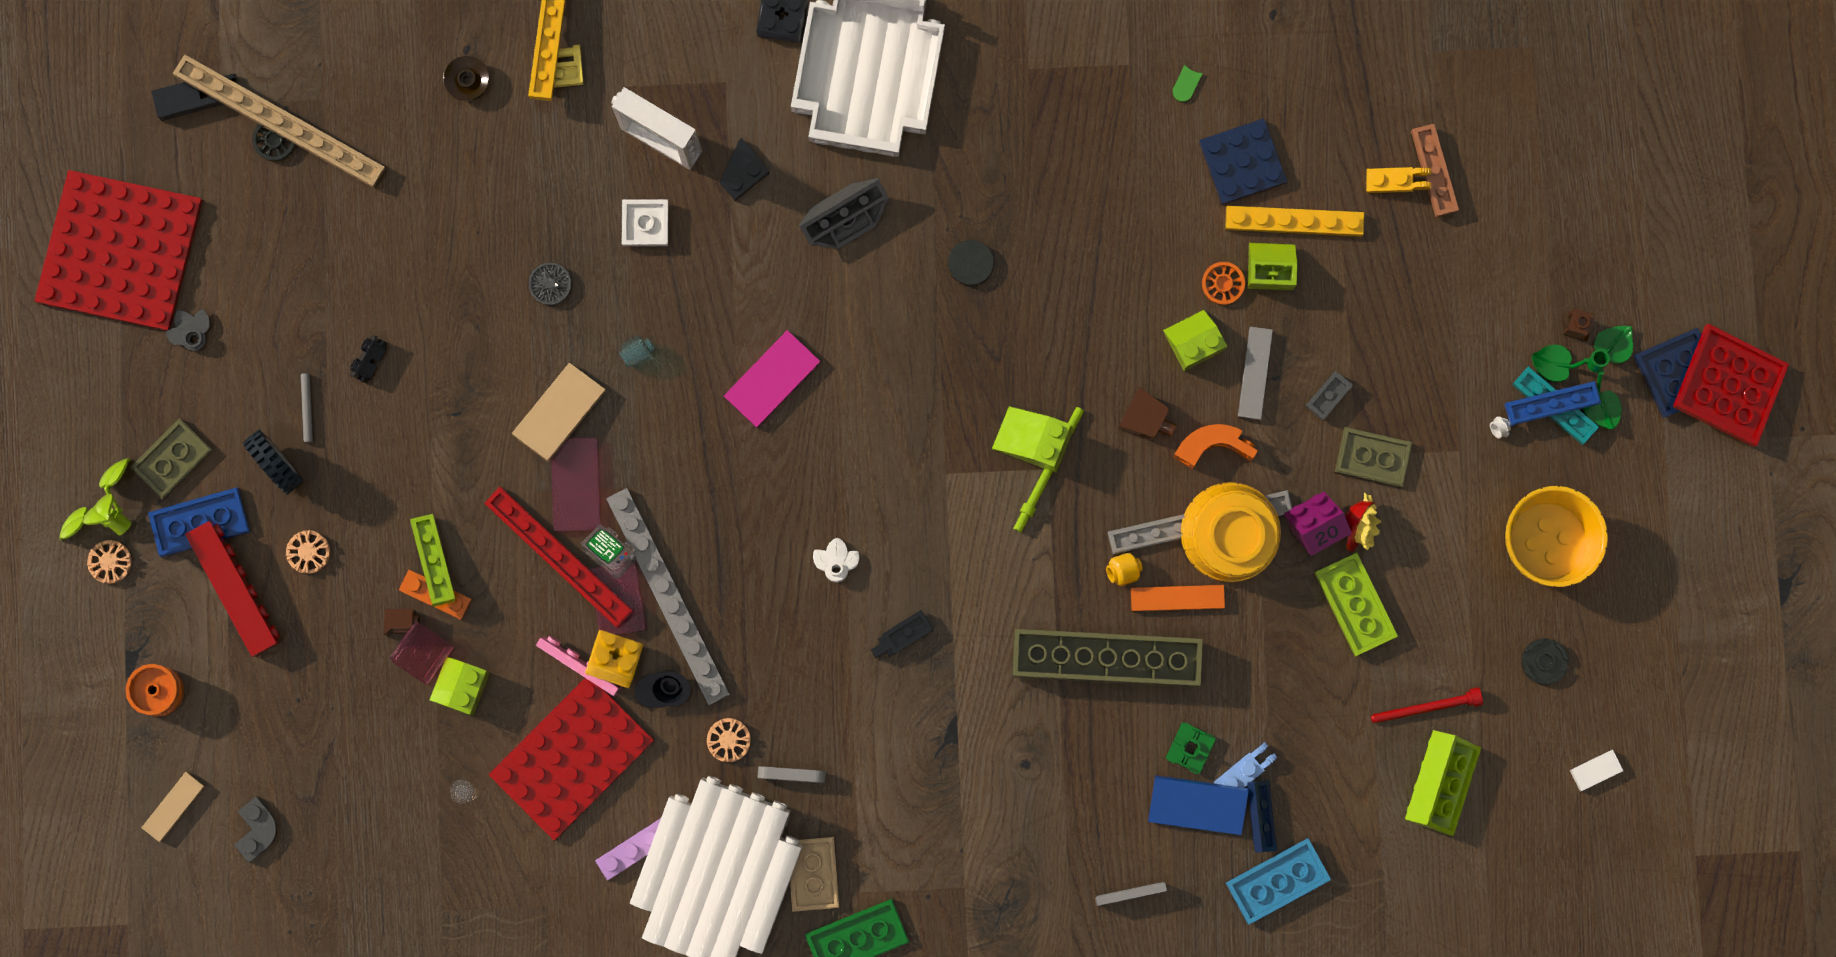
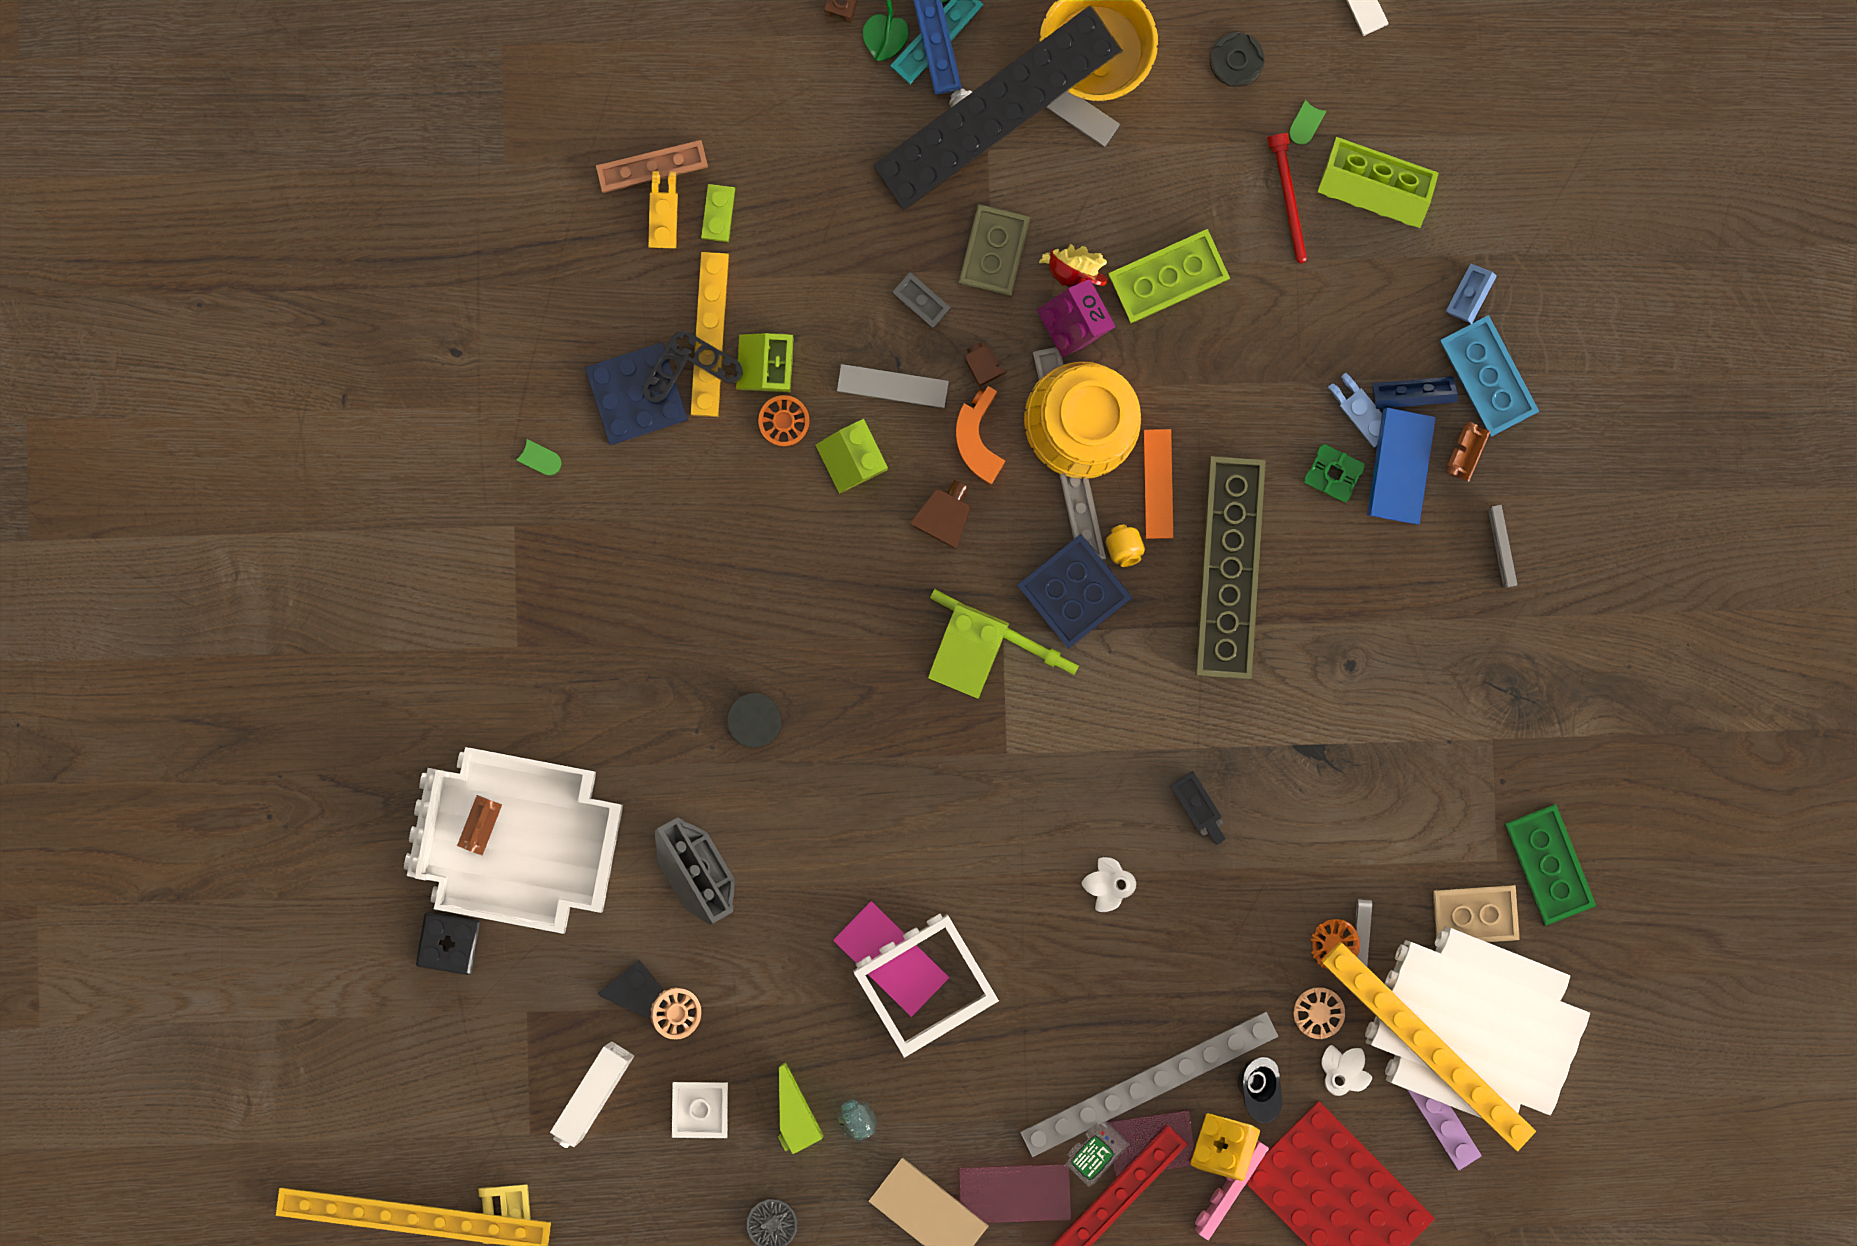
camera: 90 degrees left, 5 degrees up
(641, 298) = (796, 1119): none -> lime slope
(682, 764) = (1347, 1067): none -> white plate
(699, 828) = (1428, 1046): none -> yellow plate
(725, 201) = (675, 1013): none -> light nougat wheel
(786, 752) = (1333, 939): none -> orange wheel
(789, 393) = (891, 951): none -> white window
(879, 37) = (479, 825): none -> dark orange hinge
(1084, 527) = (1074, 591): none -> dark blue plate
(1203, 859) = (1466, 457): none -> dark orange hinge
(1273, 196) = (681, 358): none -> black beam
(1275, 448) = (983, 364): none -> reddish brown window
(1349, 864) = (1471, 293): none -> medium blue plate
(1397, 226) = (718, 213): none -> lime plate
(1491, 721) = (1305, 124): none -> bright green piece
(1496, 520) = (1084, 118): none -> light grey tile
(1497, 454) = (998, 107): none -> black plate

